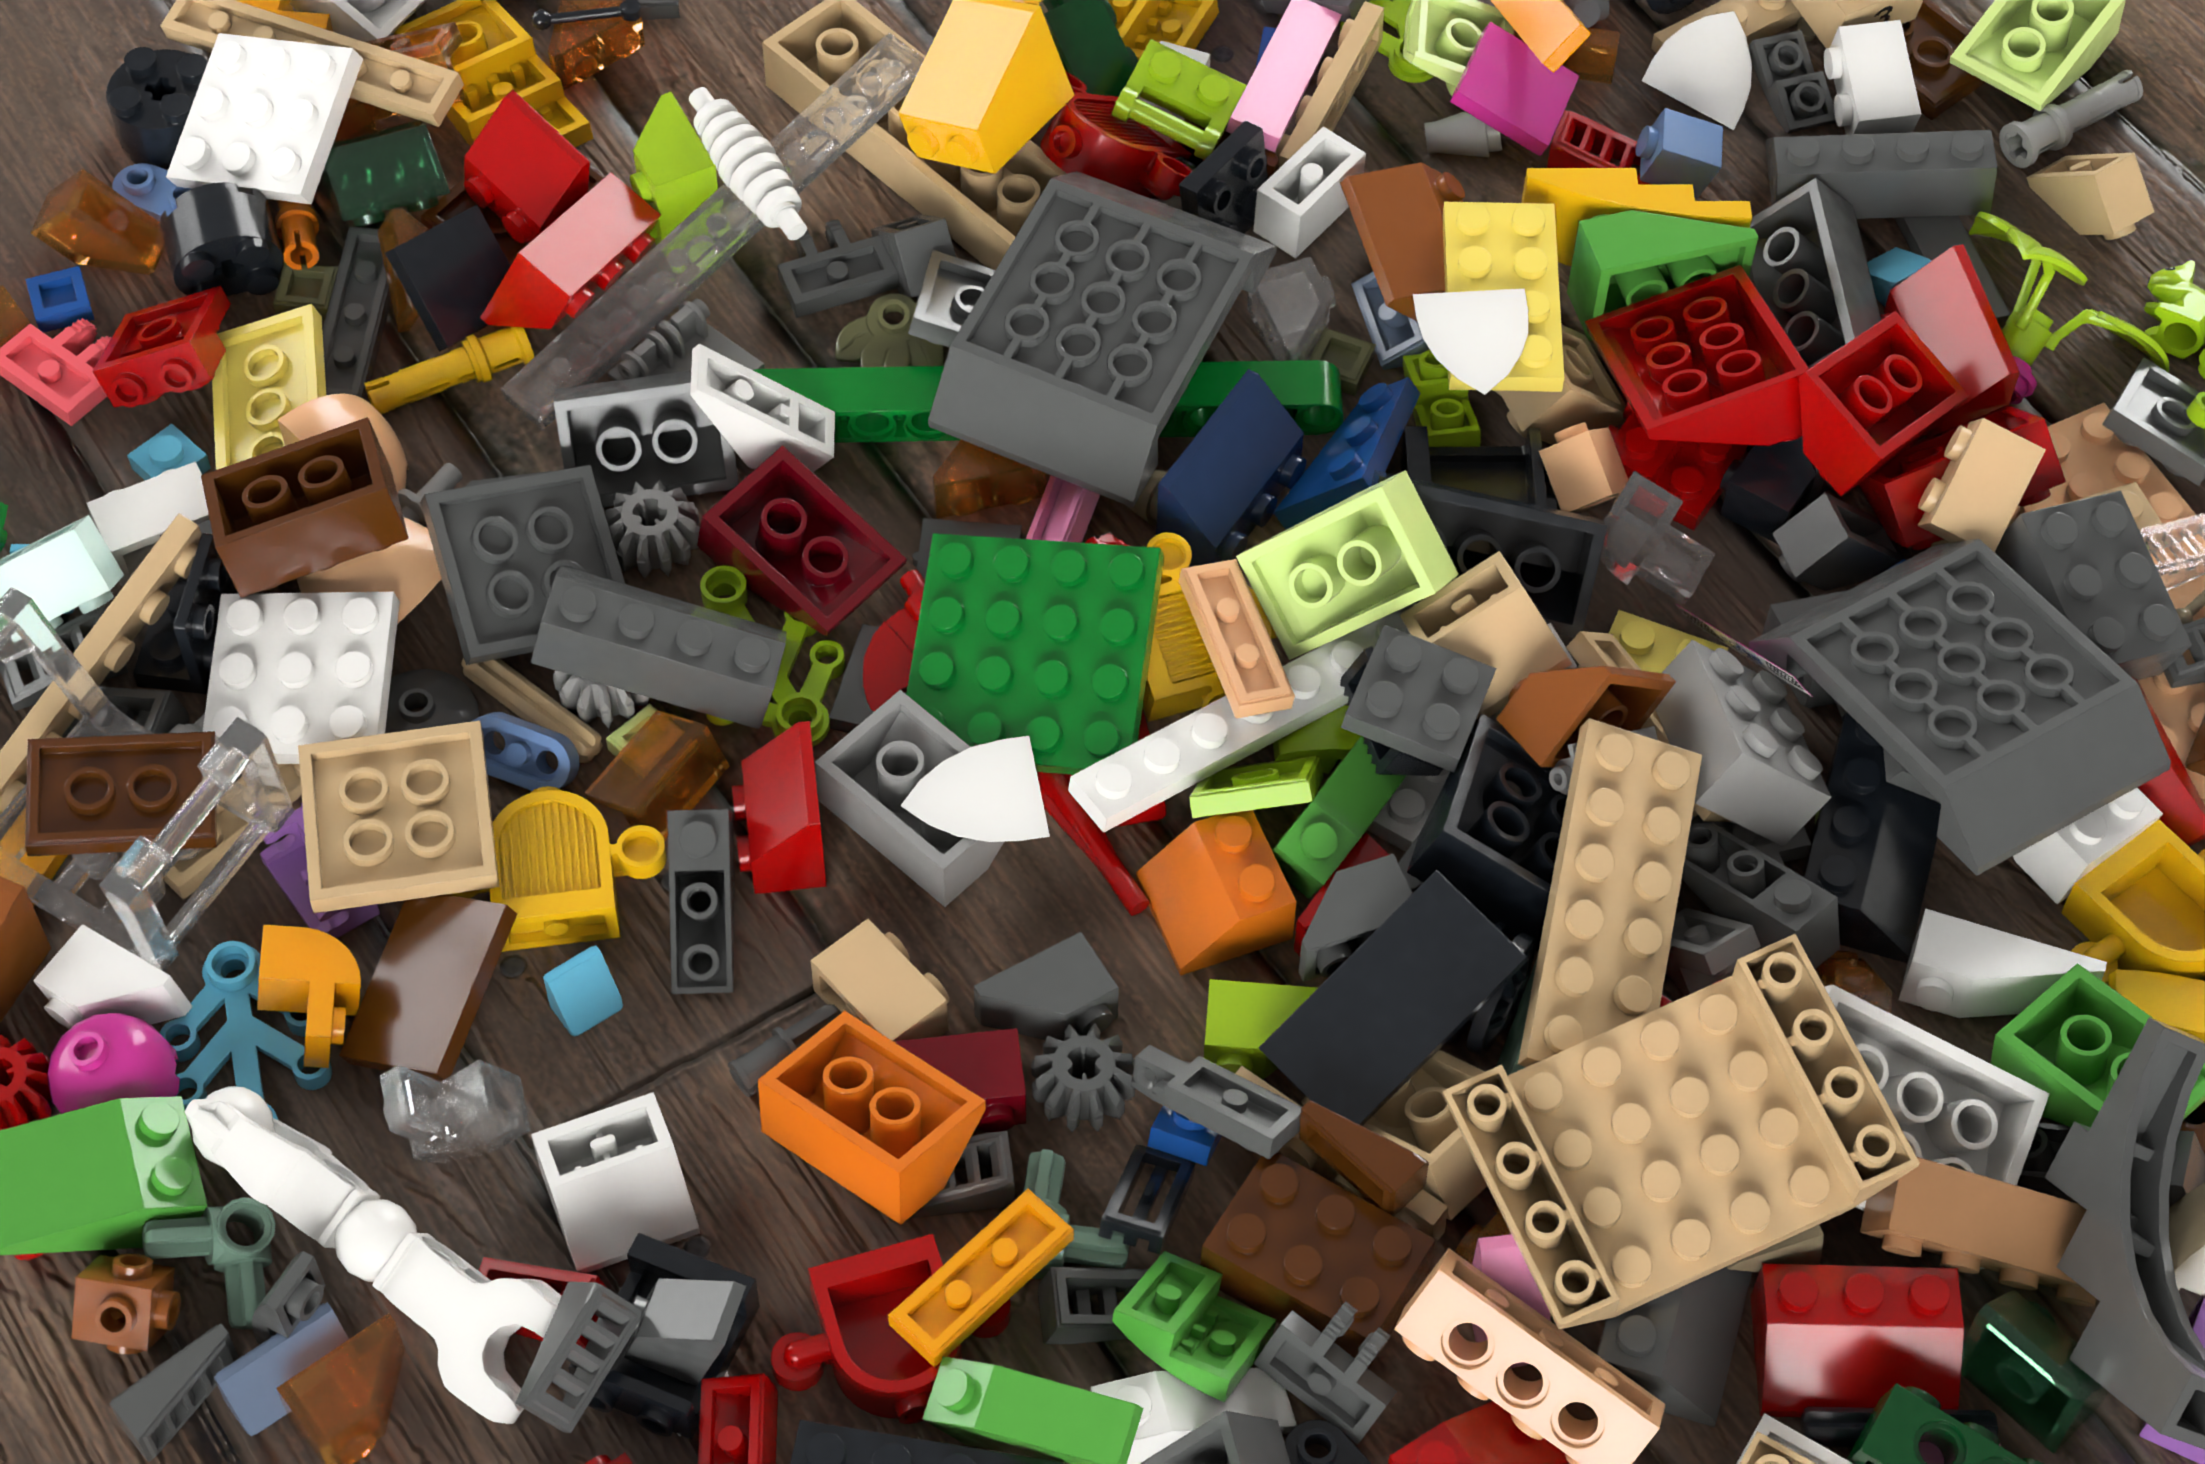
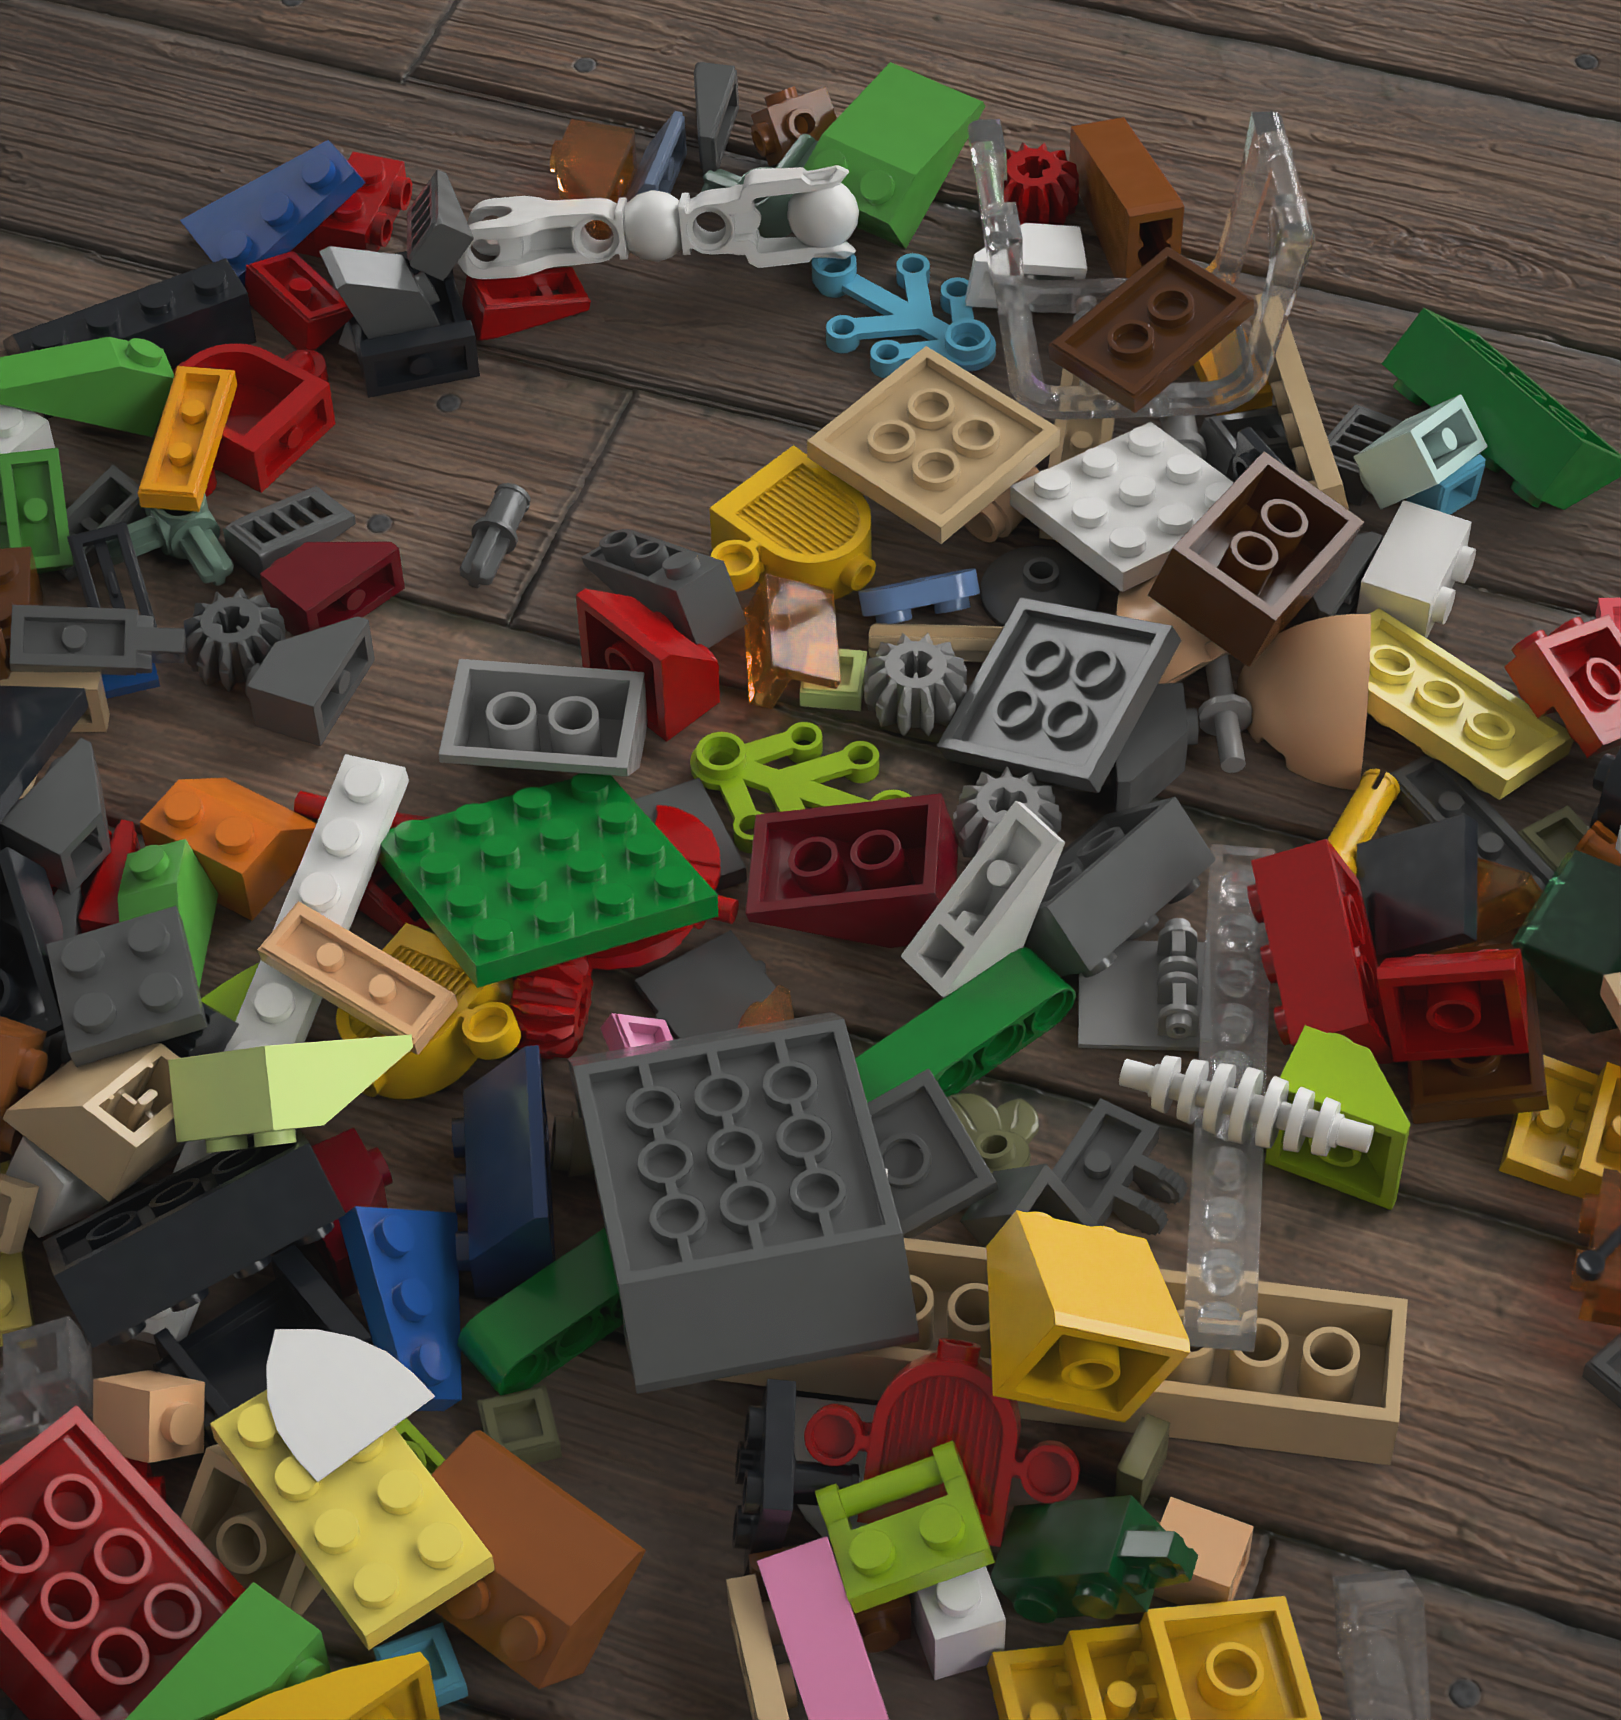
camera: 145 degrees right, 5 degrees down
(111, 1060) = (949, 227): dark pink cylinder -> none
(166, 451) = (1481, 636): medium azure plate -> none
(290, 1300) = (674, 157): dark grey slope -> none
(309, 975) = (880, 342): light orange brick -> none
(428, 985) = (788, 385): tile -> none
(457, 1116) = (700, 346): clear brick -> none
(582, 991) = (693, 479): medium azure slope -> none
(613, 1180) = (537, 371): white slope -> none
(659, 647) = (872, 688): dark grey slope -> none
(869, 1115) = (371, 483): orange slope -> none
(880, 986) = (452, 600): tan brick -> none
(984, 794) = (476, 731): white sticker -> none
(1243, 1018) = (130, 747): lime slope -> none
(1257, 786) = (237, 894): lime tile -> none
(1292, 309) = (602, 1423): clear slope -> none
(1306, 192) = (690, 1565): white brick -> none

